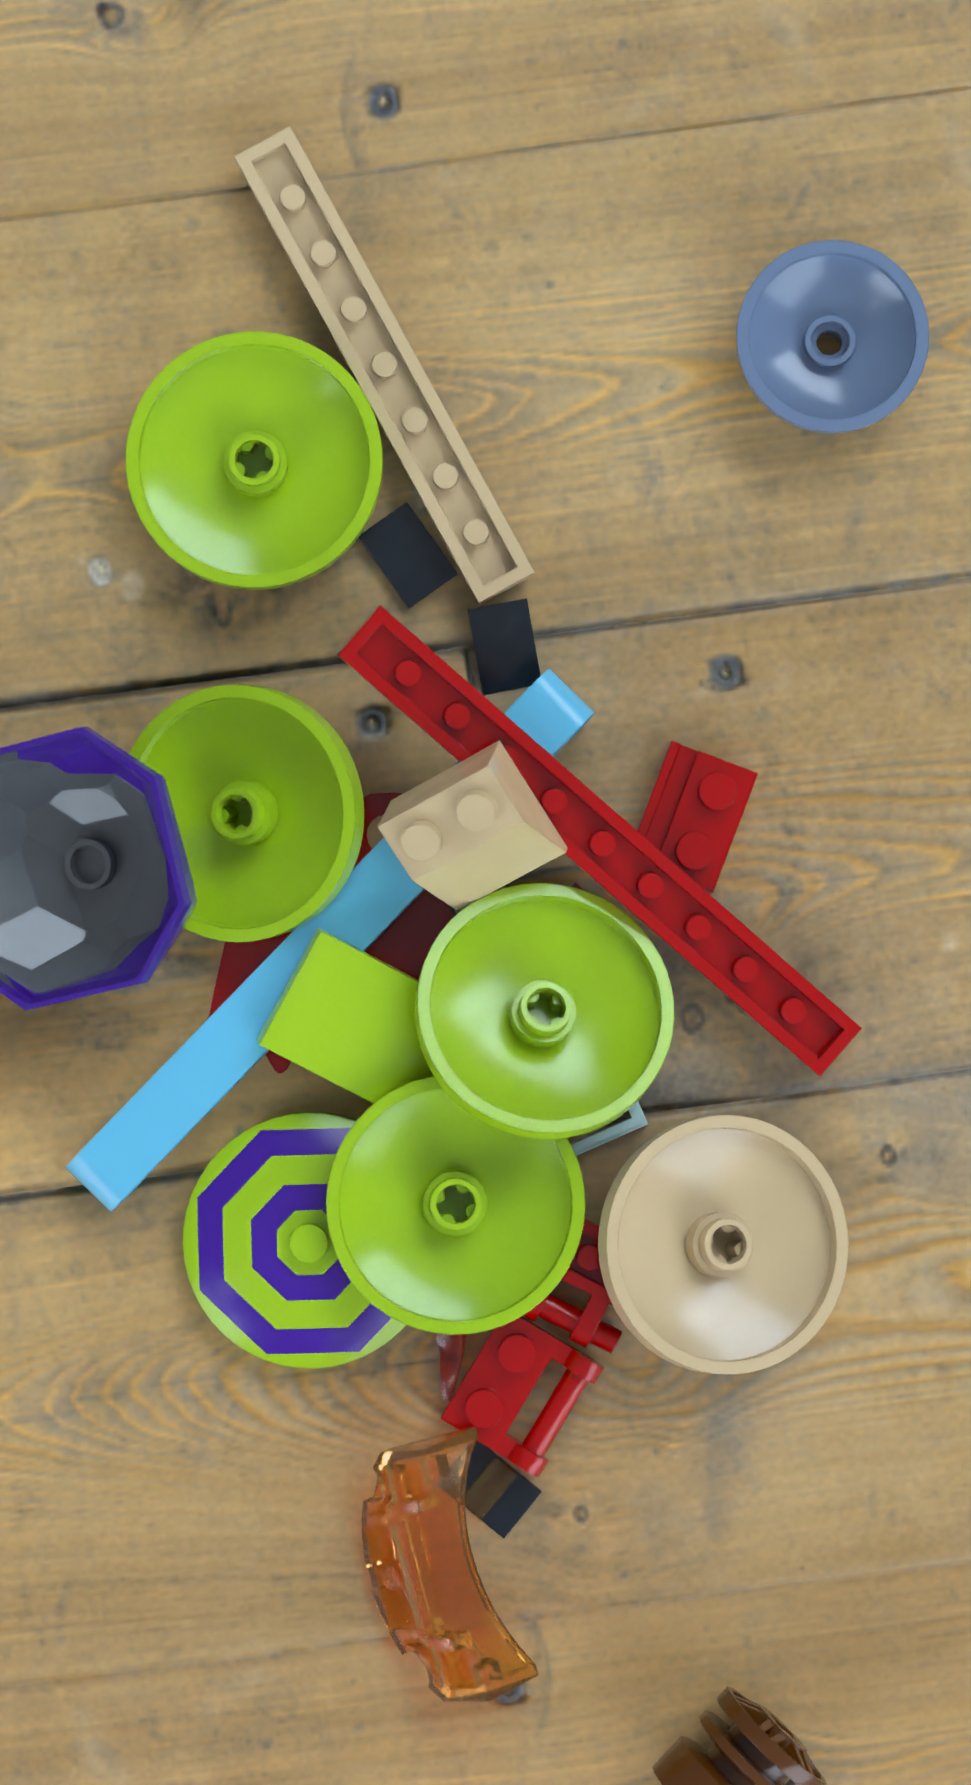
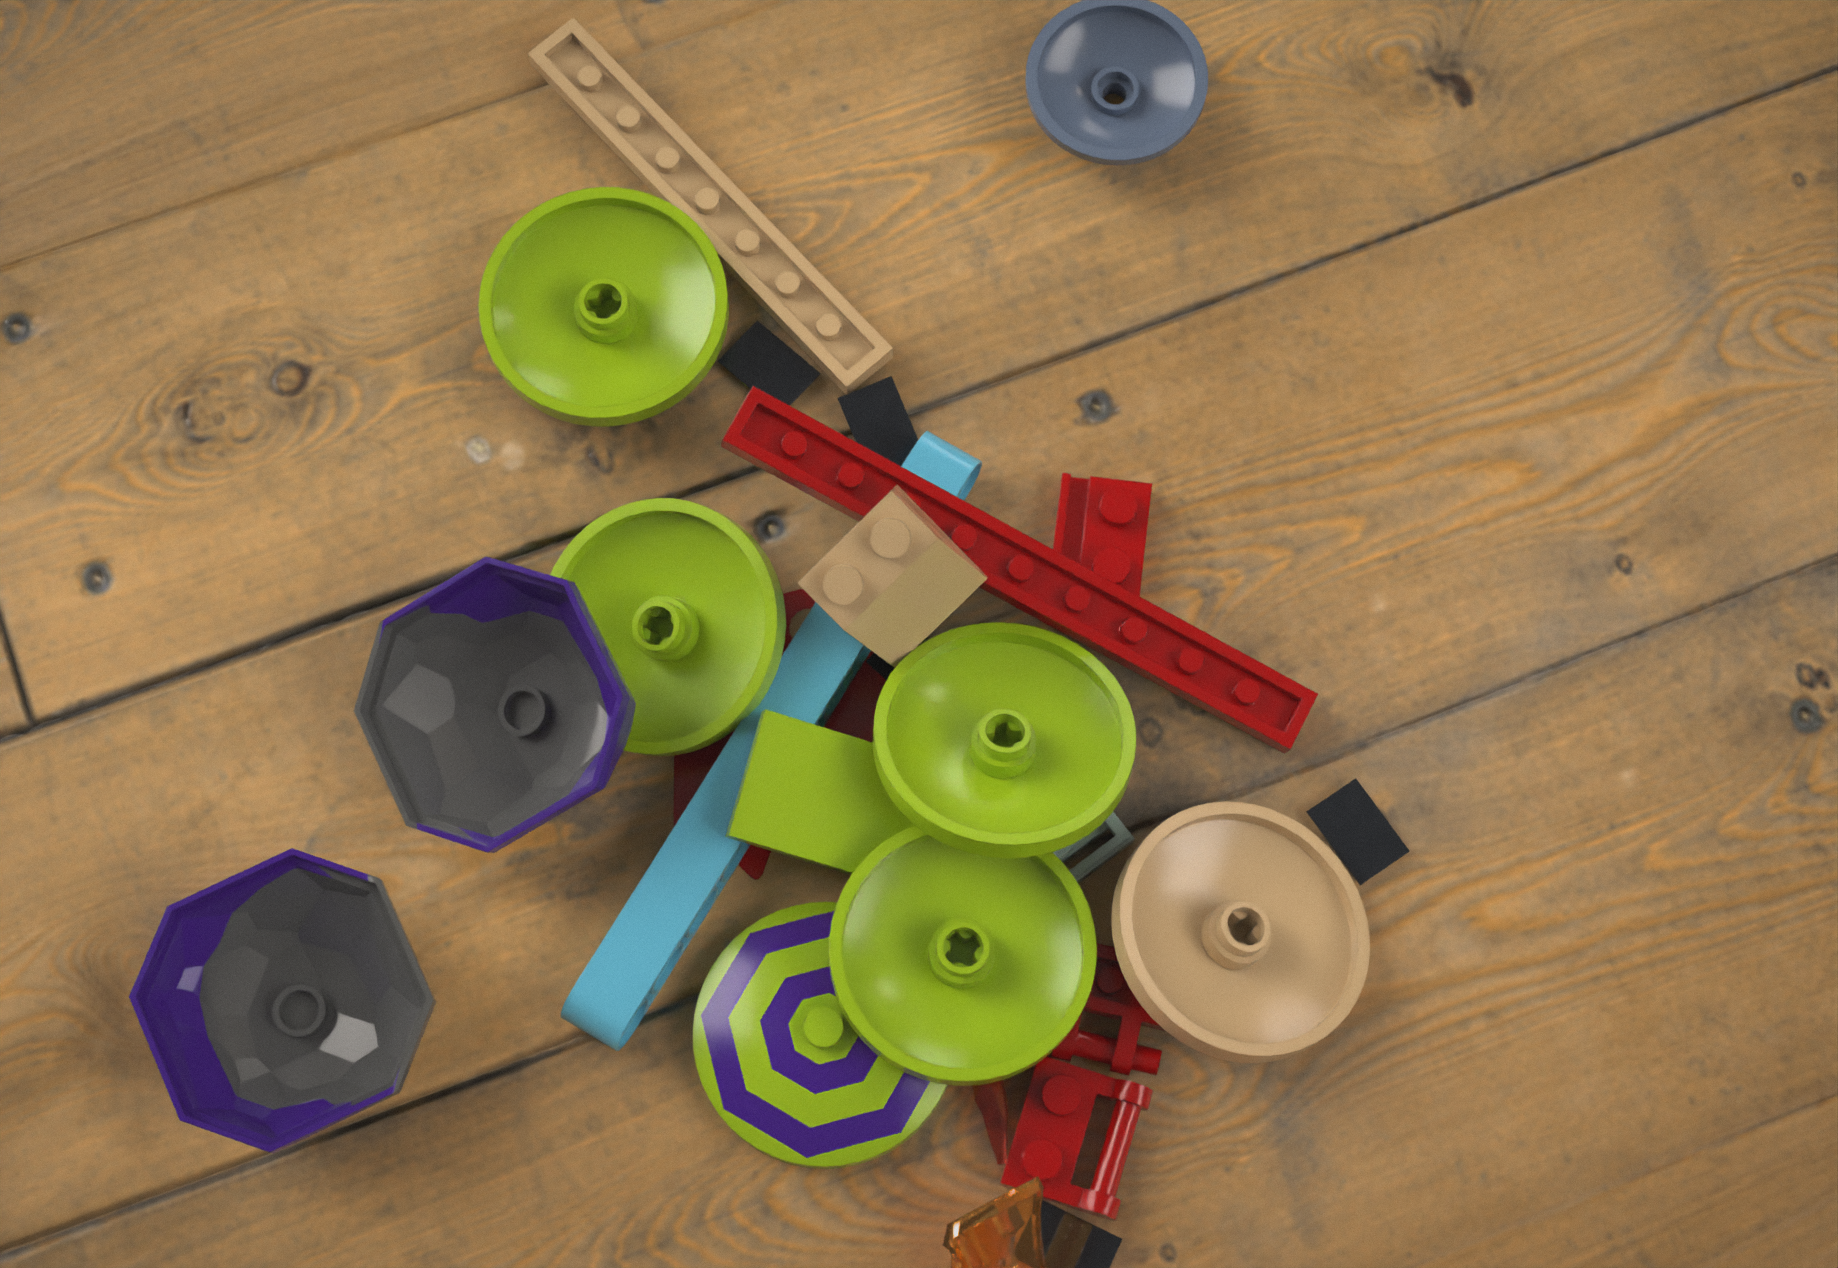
camera: 15 degrees left, 15 degrees down
(864, 1165) = (1358, 831): none -> black piece

